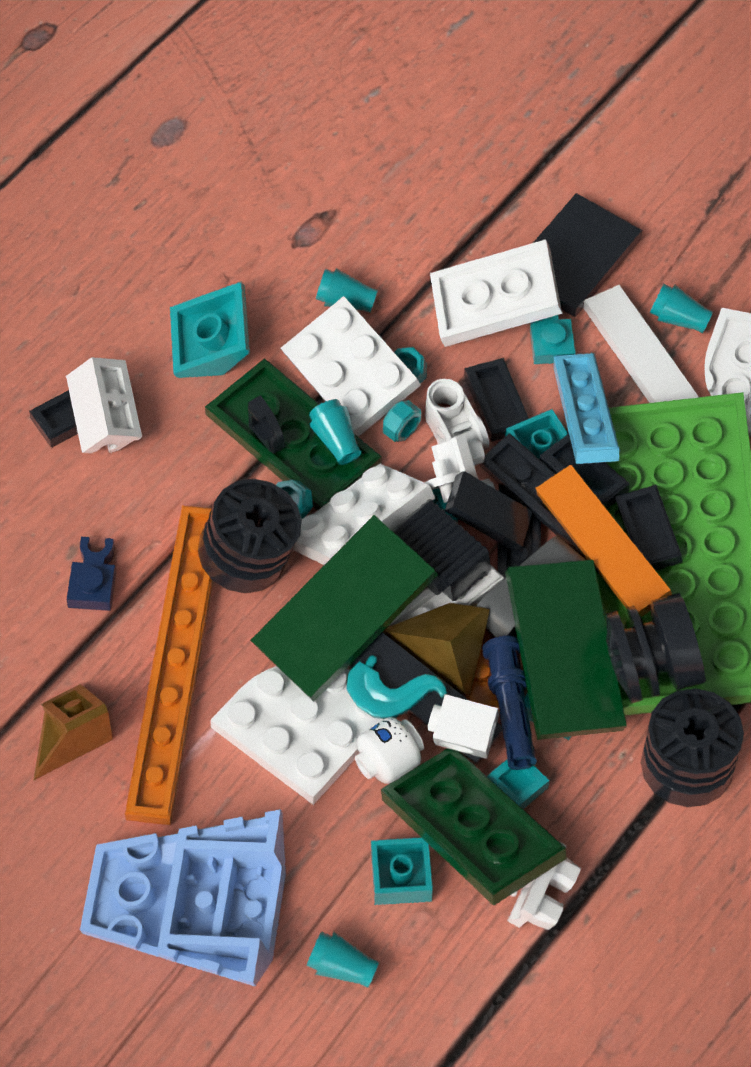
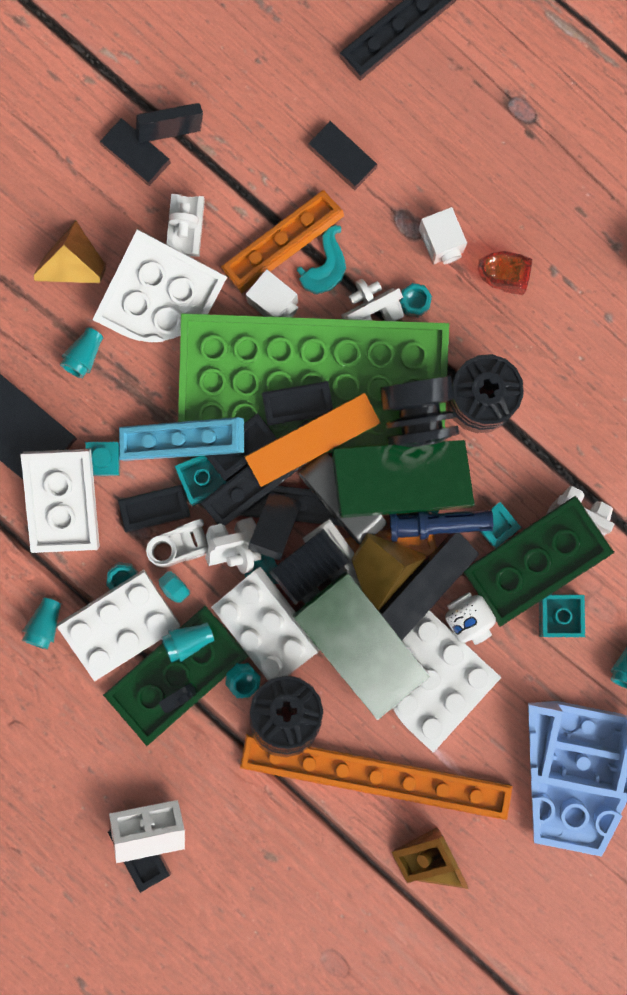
camera: 85 degrees left, 25 degrees up
(94, 579) = (303, 841): dark blue plate -> none
(210, 333) = (74, 739): teal slope -> none
(382, 702) = (433, 622): teal piece -> none
(463, 725) = (463, 561): white brick -> none
(637, 347) = (119, 389): white tile -> none

